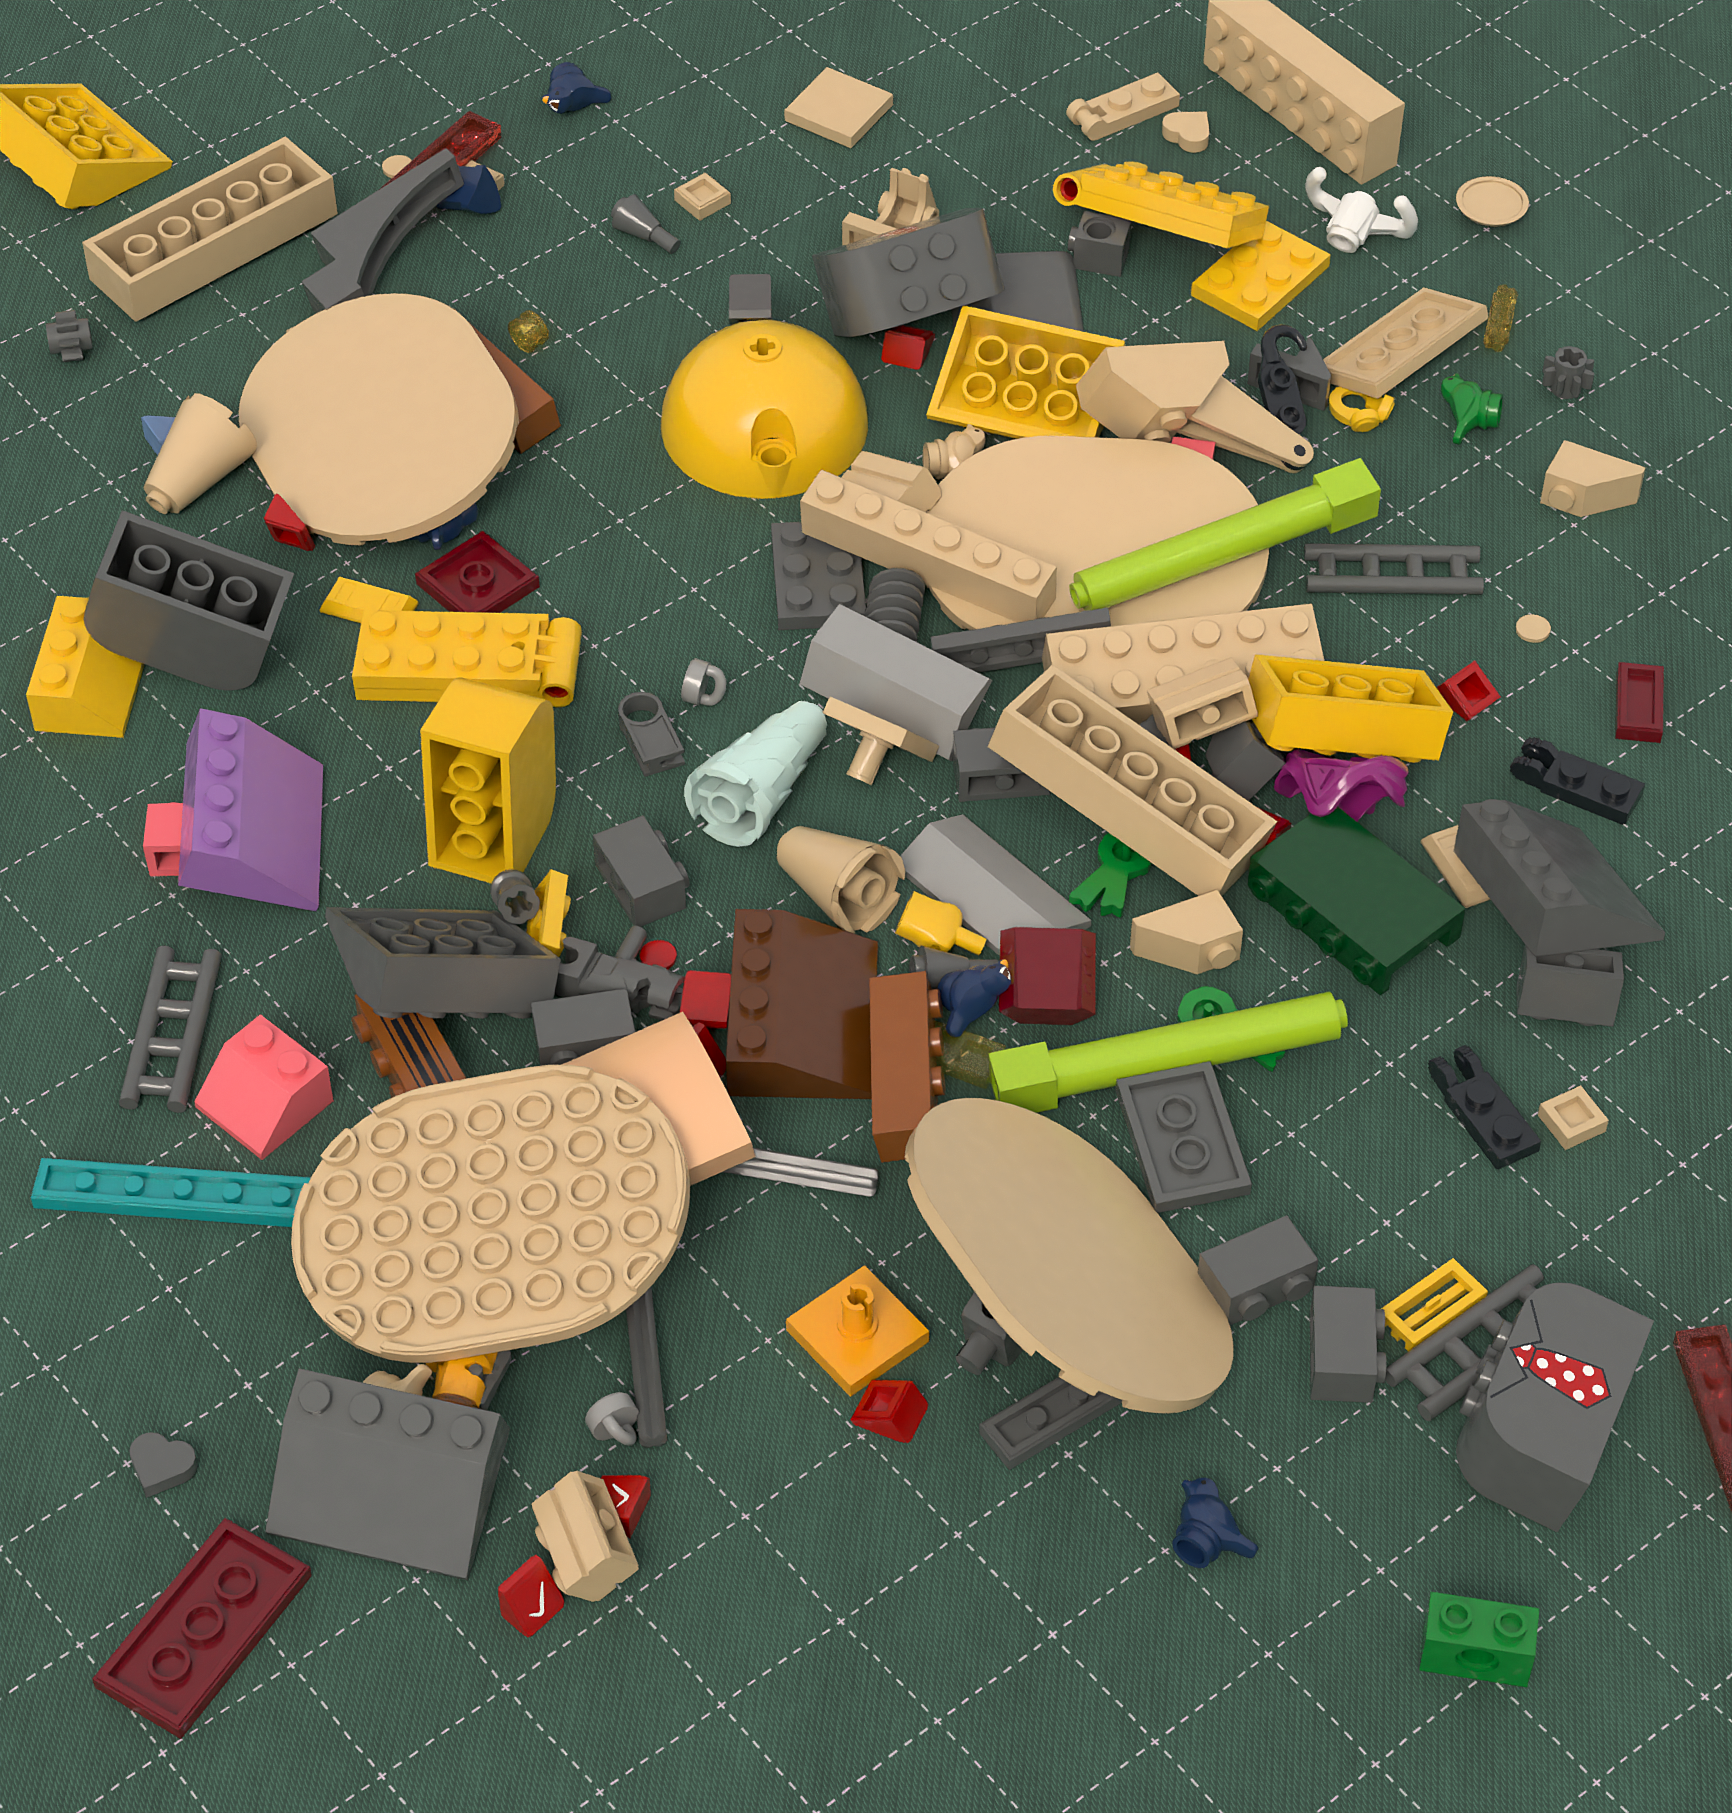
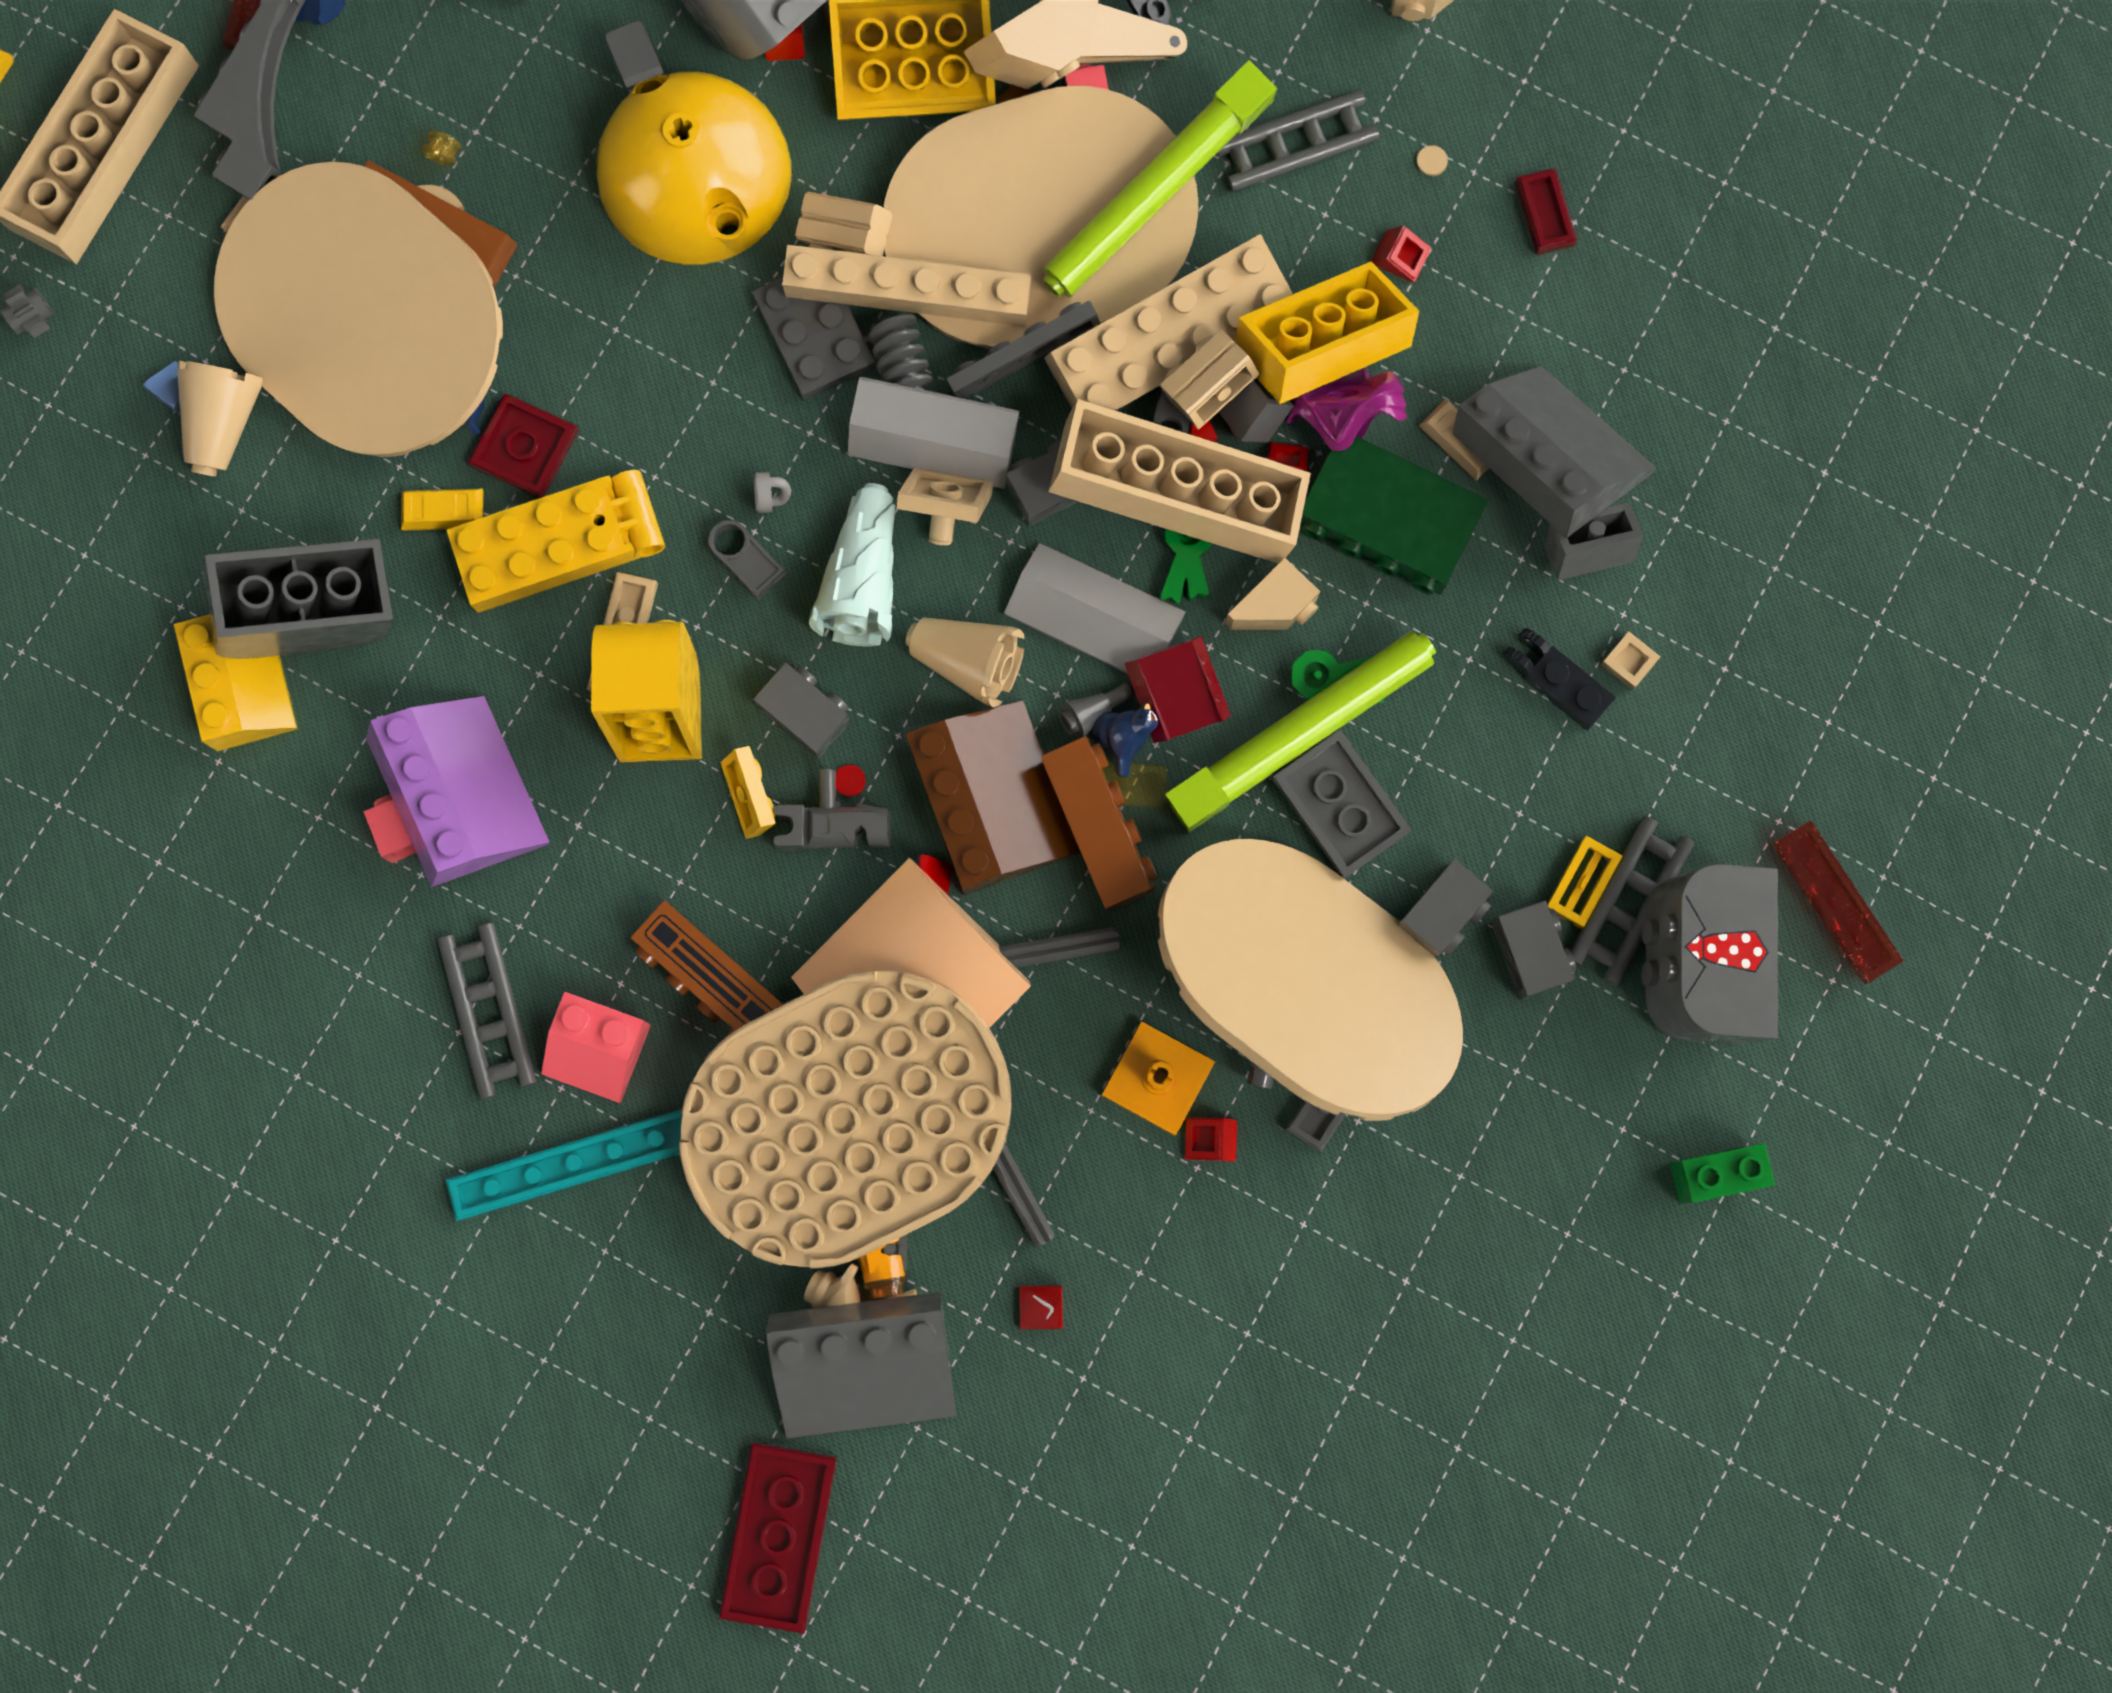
camera: 25 degrees left, 30 degrees up
(161, 1463) = (677, 1413): dark grey tile -> none
(286, 525) = (330, 455): red slope -> none
(442, 961) = (686, 879): dark grey slope -> none
(509, 884) = (716, 784): dark grey bush -> none
(529, 1597) = (1015, 1418): red slope -> none
(580, 1024) = (828, 891): dark grey brick -> none
(583, 1537) = (1035, 1357): tan brick -> none
(613, 1418) = (1006, 1238): light grey tile -> none
(706, 998) = (912, 819): red slope -> none
(936, 925) = (1066, 672): yellow piece -> none
(945, 455) = (879, 155): tan animal -> none
(1207, 1527) = (1489, 1152): dark blue animal -> none
(1577, 780) = (1526, 316): black hinge -> none

